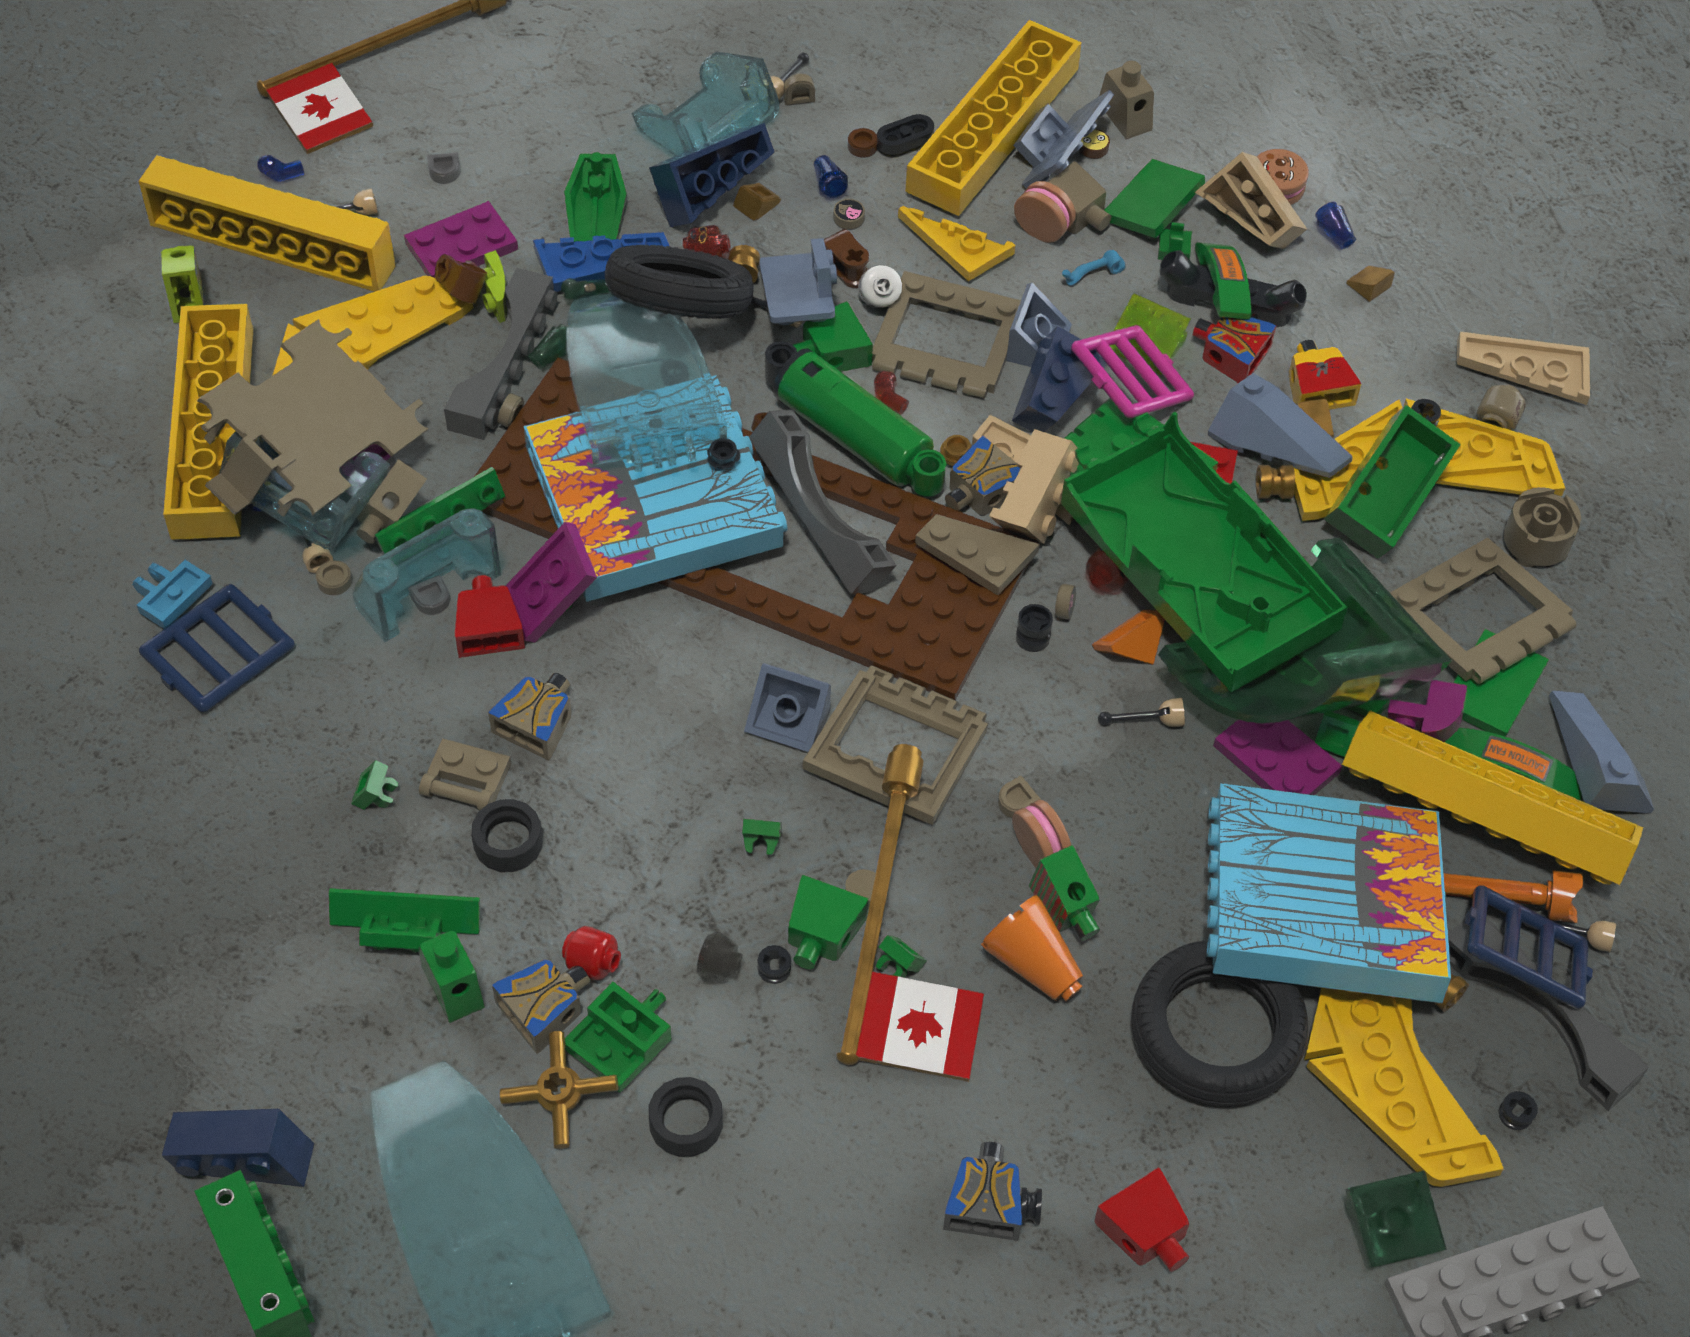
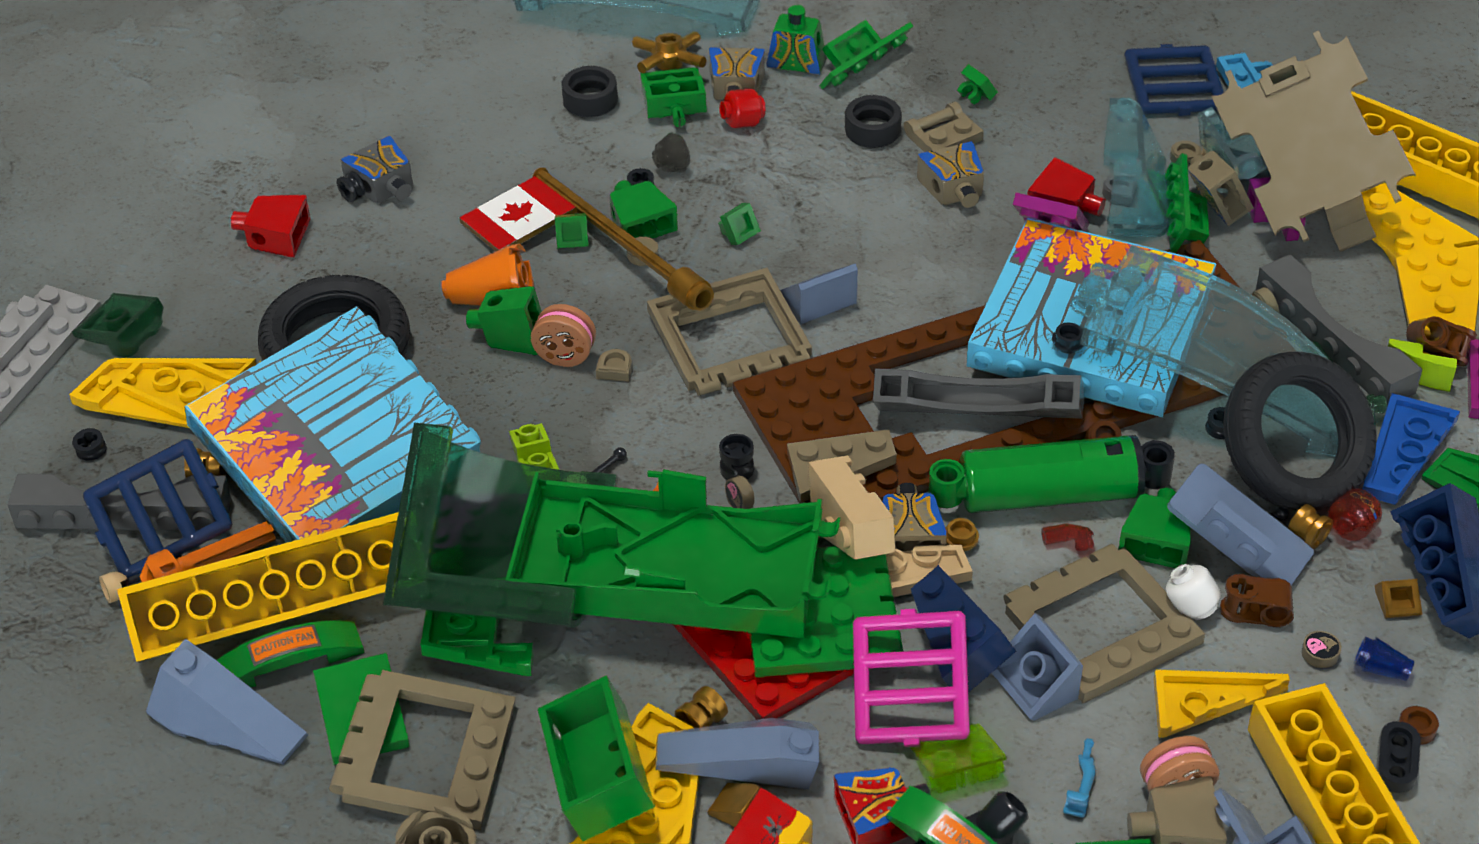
camera: 135 degrees right, 10 degrees down
(1170, 770) = (533, 446): none -> lime slope
(1440, 715) = (379, 627): magenta brick -> none

